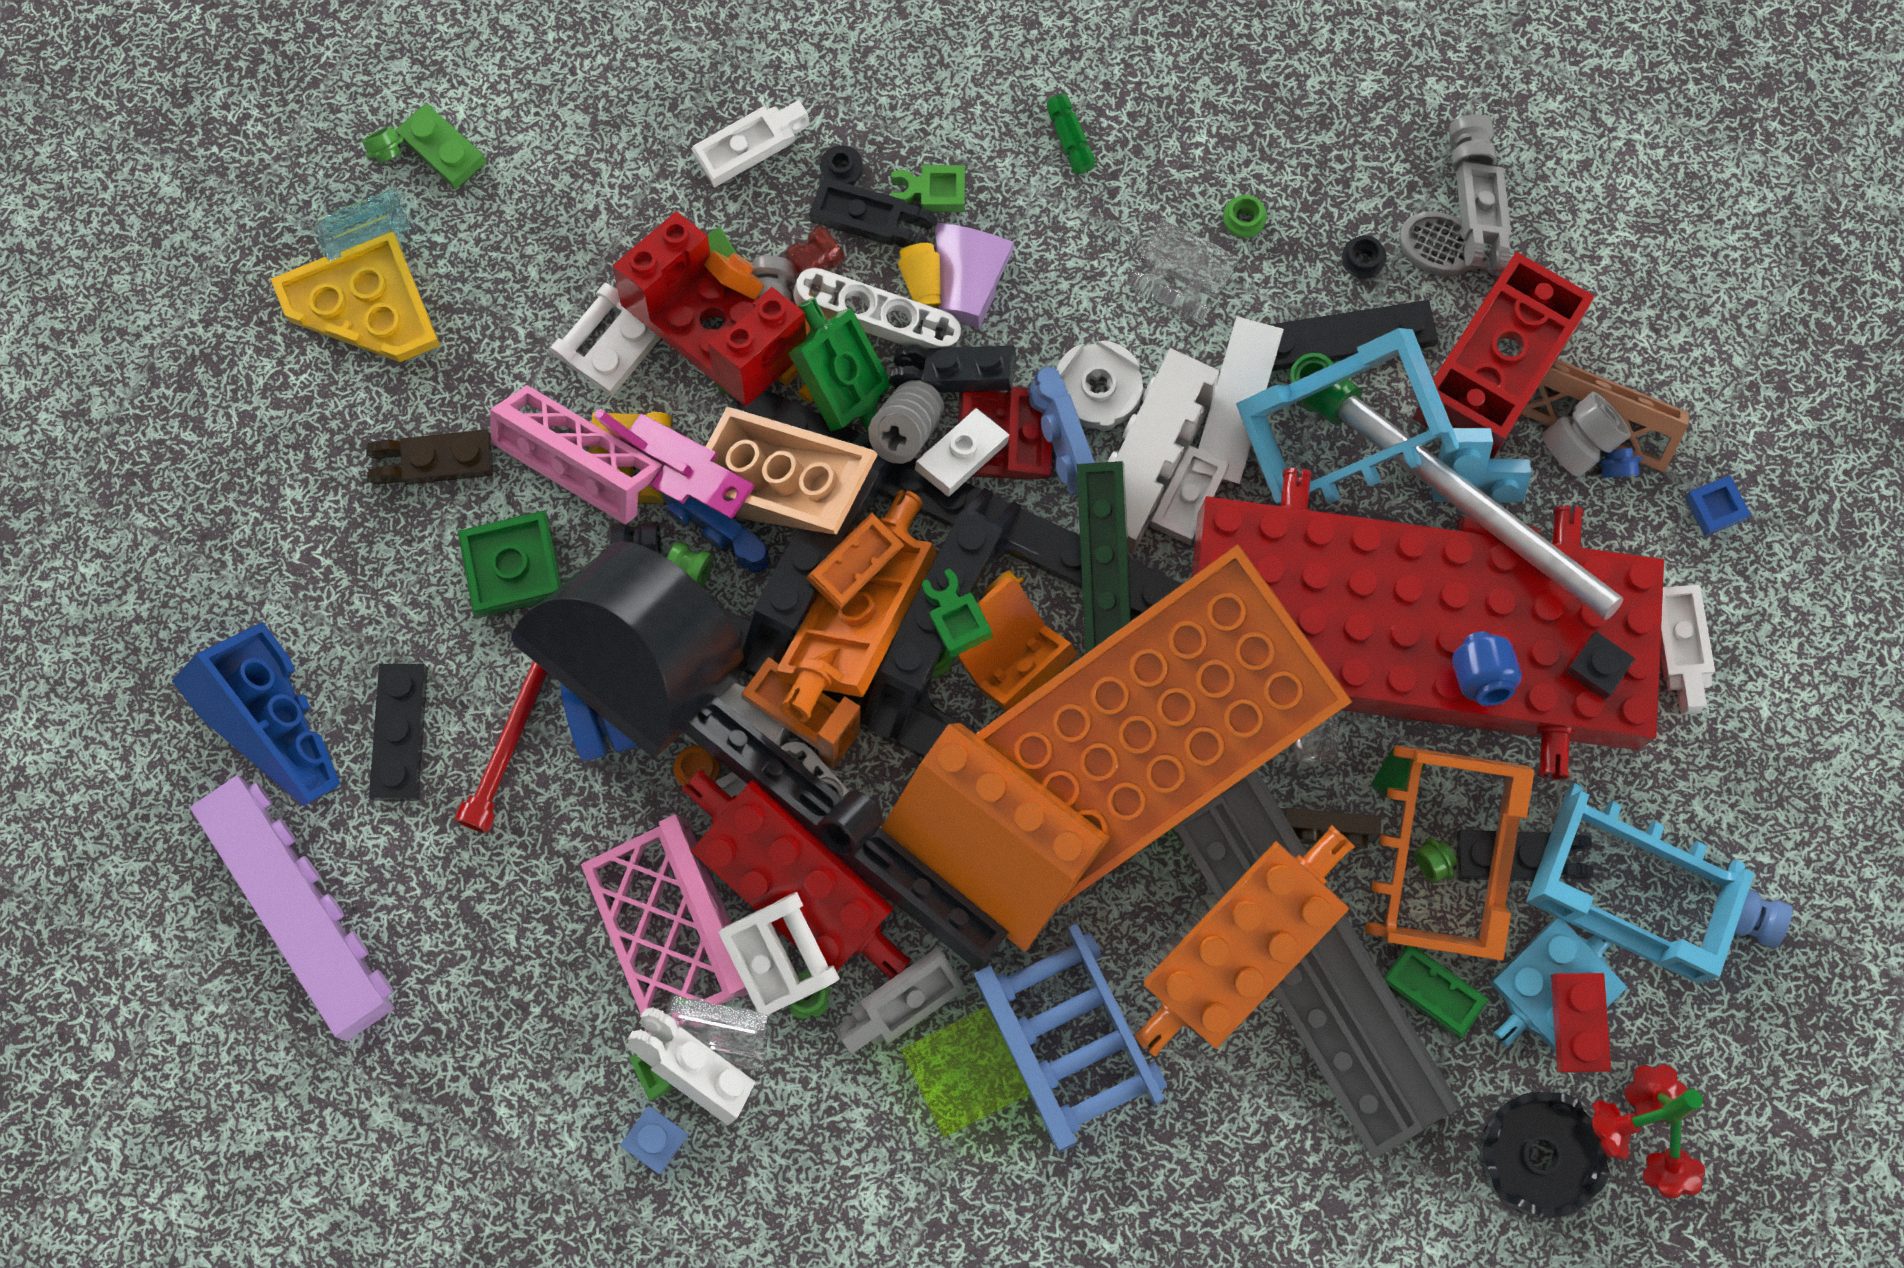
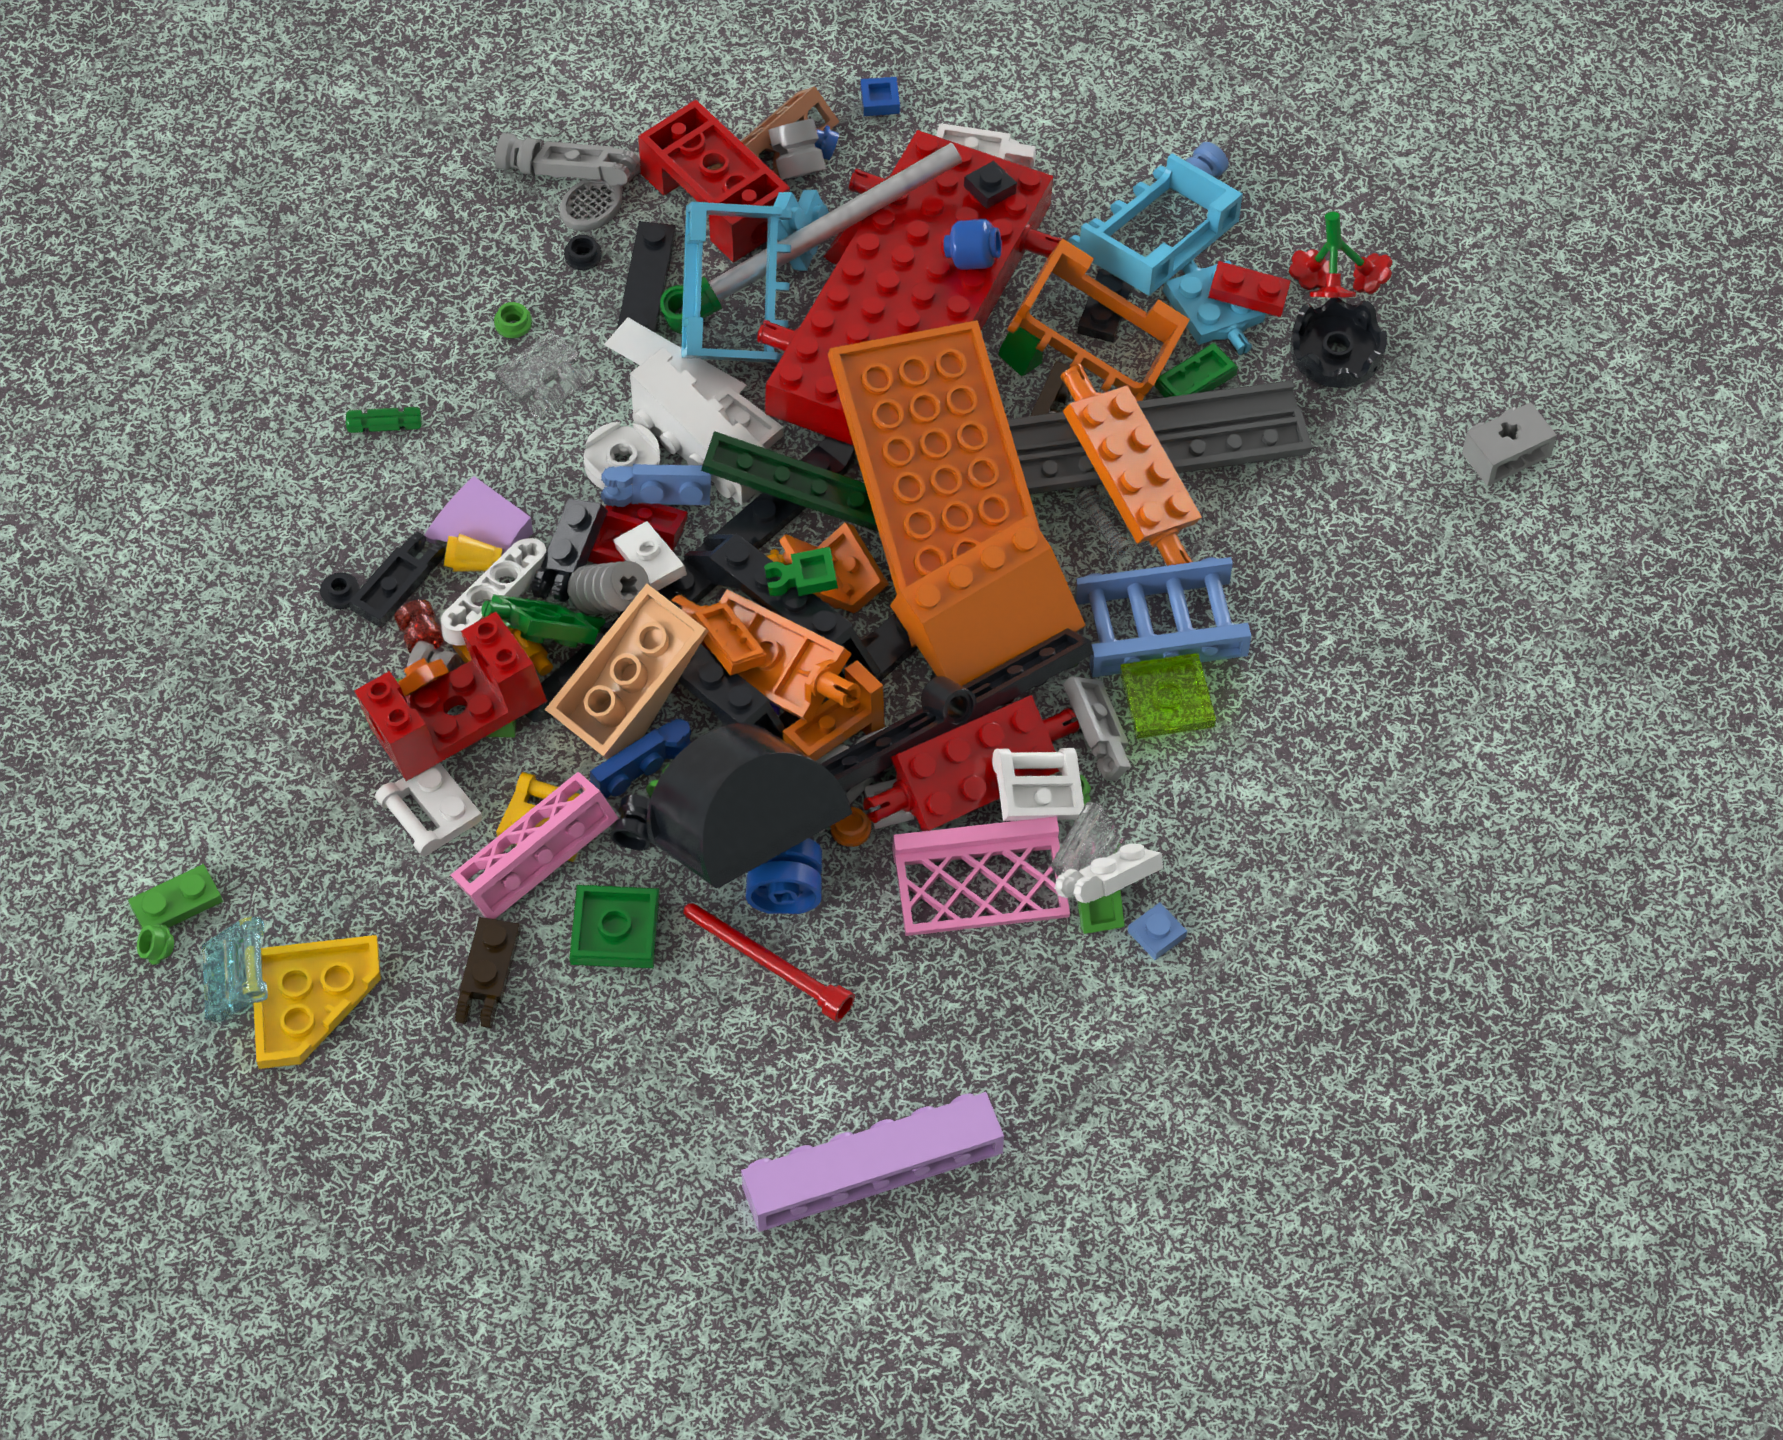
camera: 80 degrees left, 15 degrees down
(249, 701) = (661, 1167): blue wedge -> none
(398, 732) = (737, 1051): black plate -> none
(687, 464) = (588, 751): piece -> none
(749, 141) = (286, 653): white hinge -> none
(938, 189) = (392, 524): bright green plate -> none
(1435, 860) = (1098, 344): bright green plate -> none

